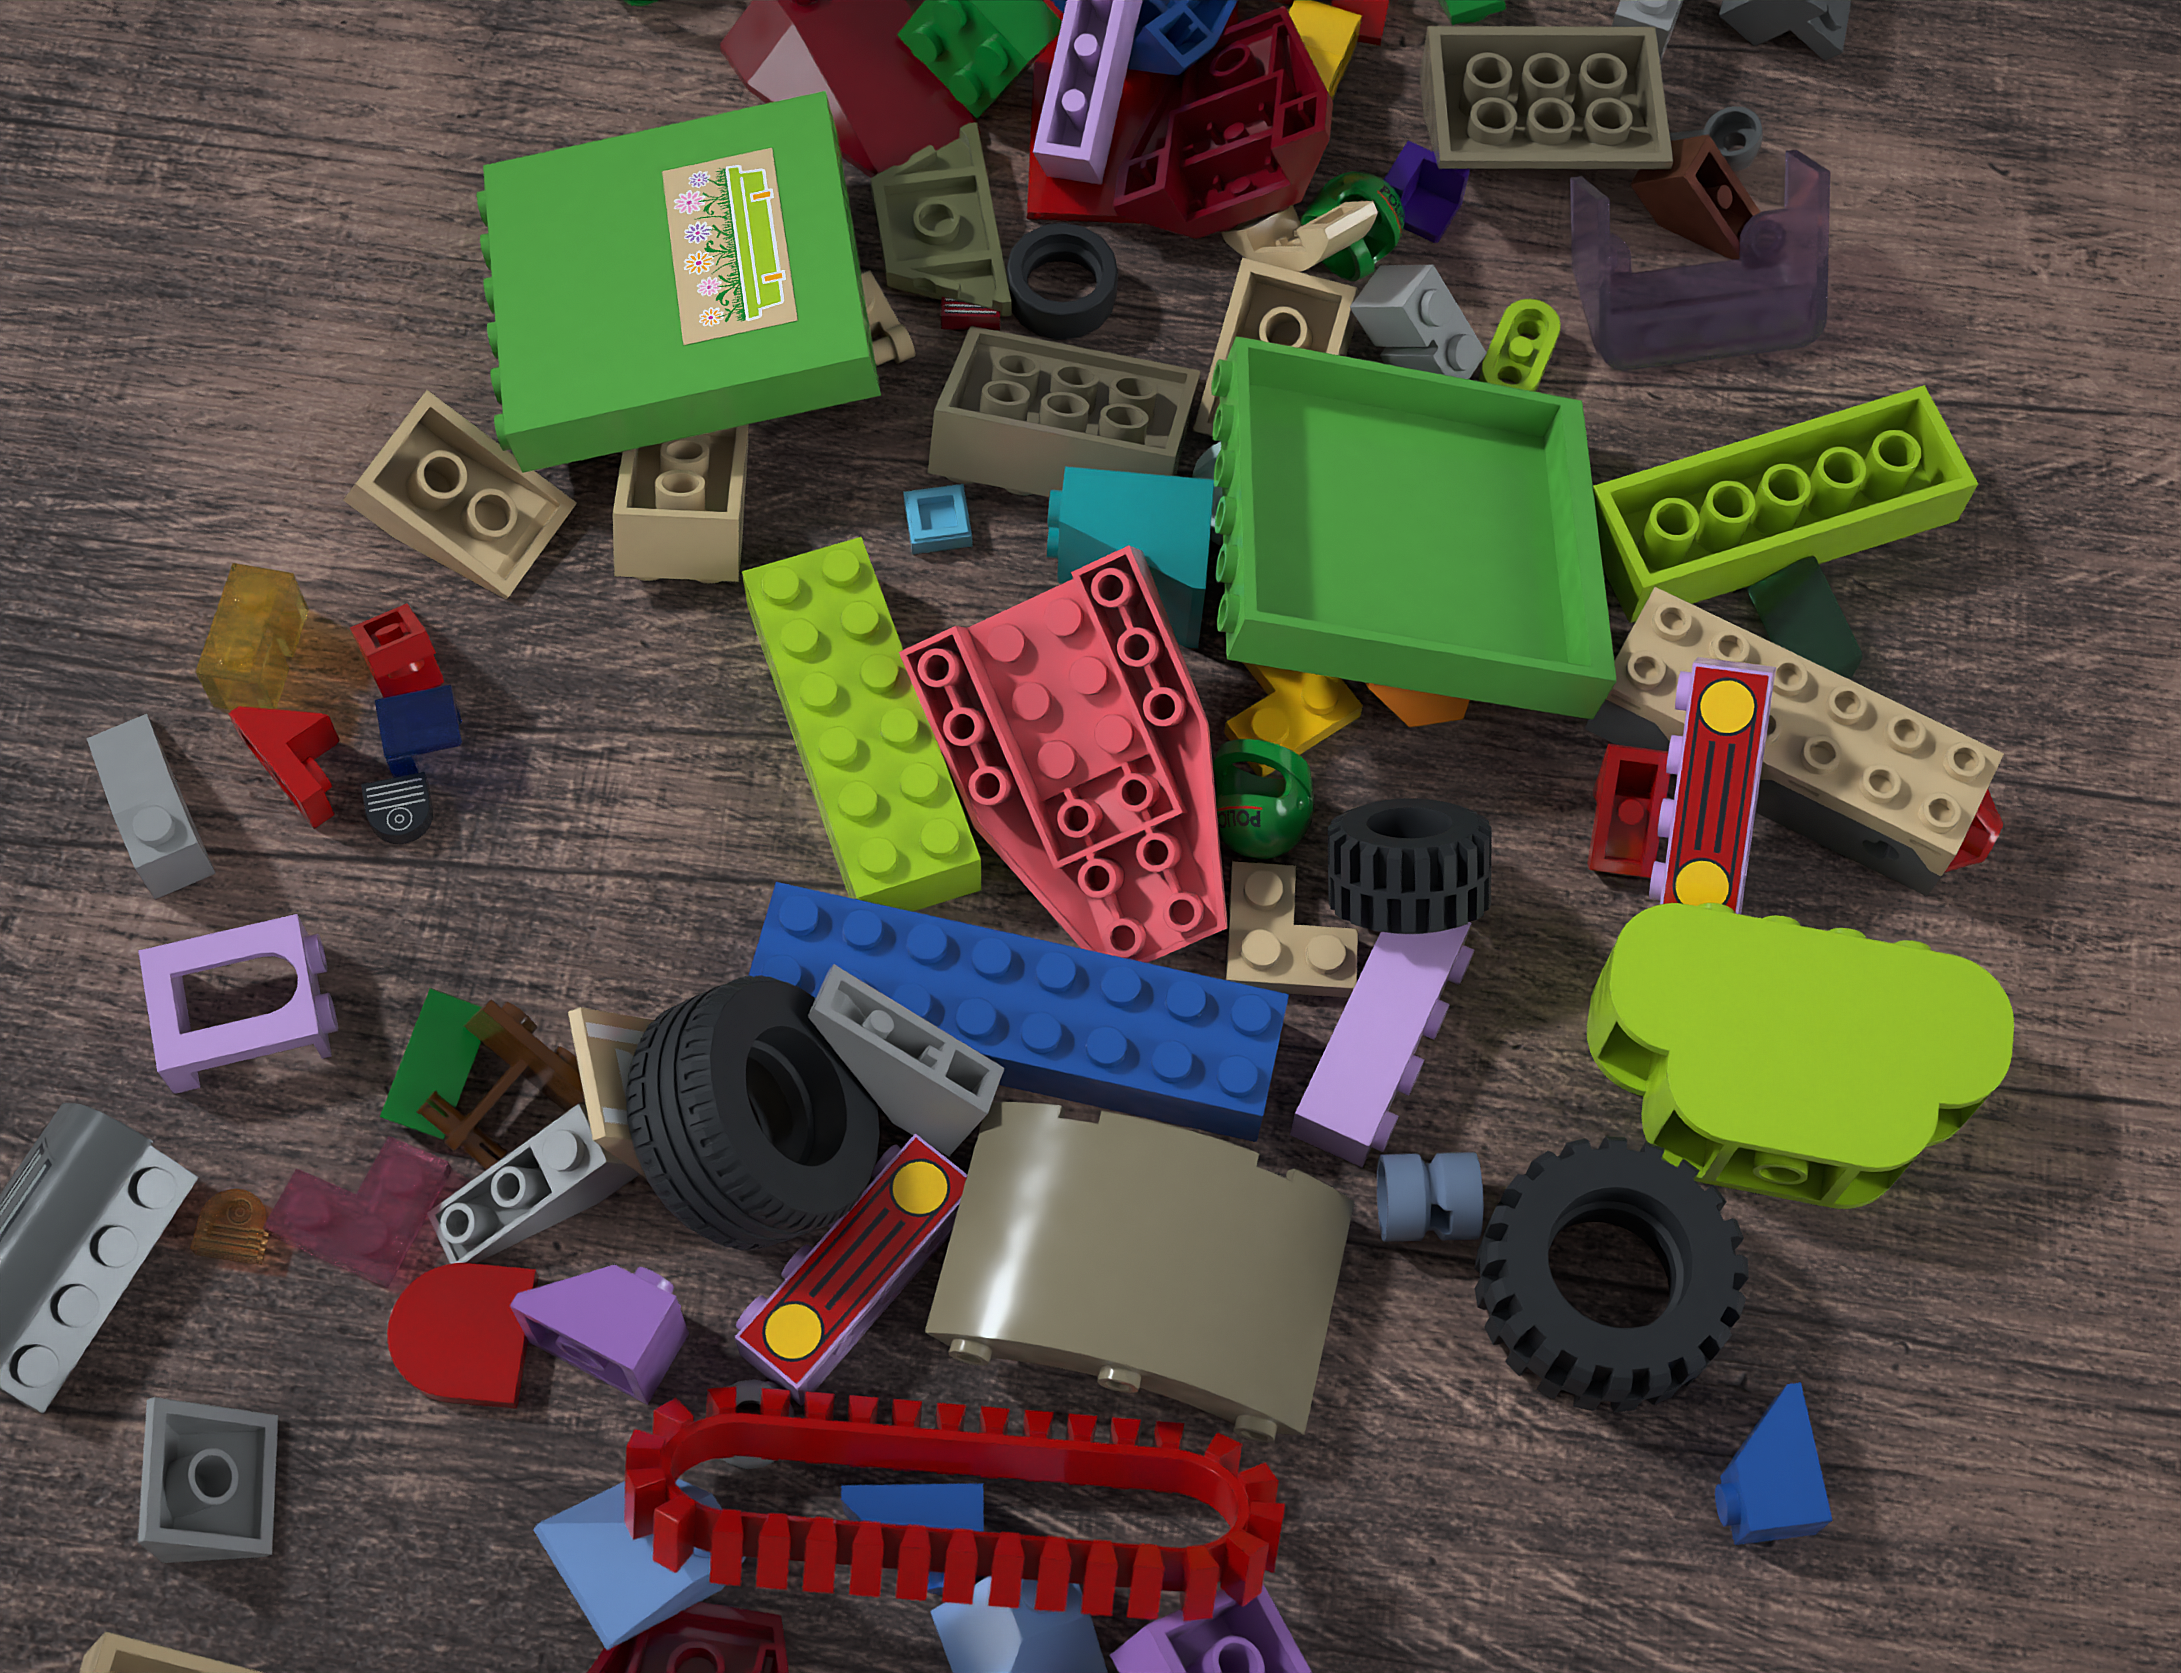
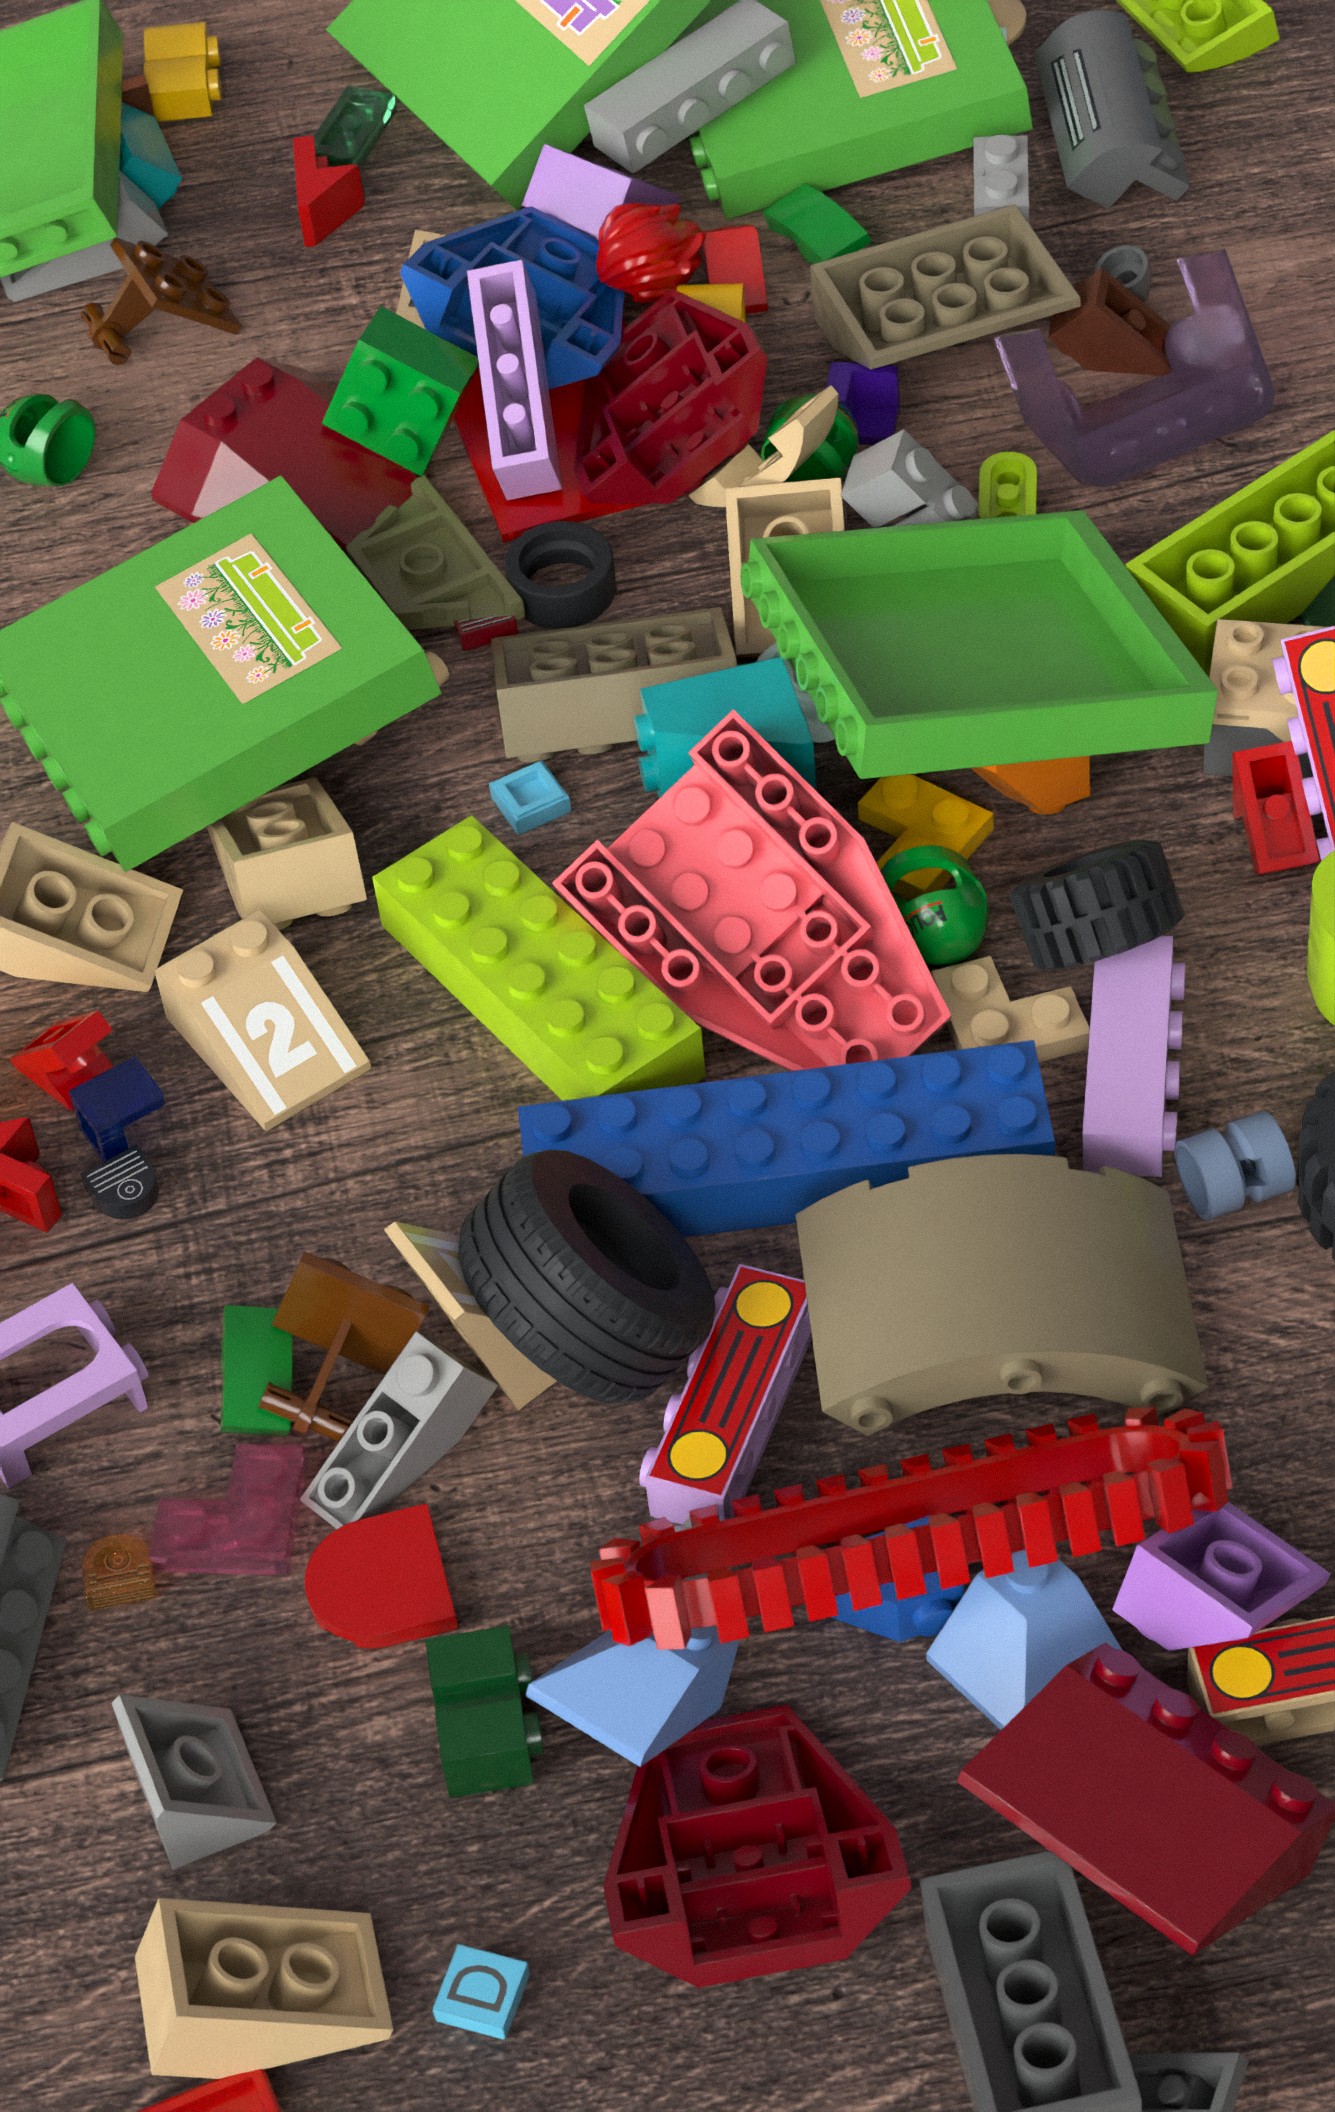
camera: 10 degrees left, 15 degrees down
(489, 1528) = (480, 1711): none -> dark green brick
(588, 681) = (260, 1020): none -> tan slope
(608, 1325) = (517, 1511): medium lavender slope -> none
(906, 1063) = (714, 1205): light grey slope -> none

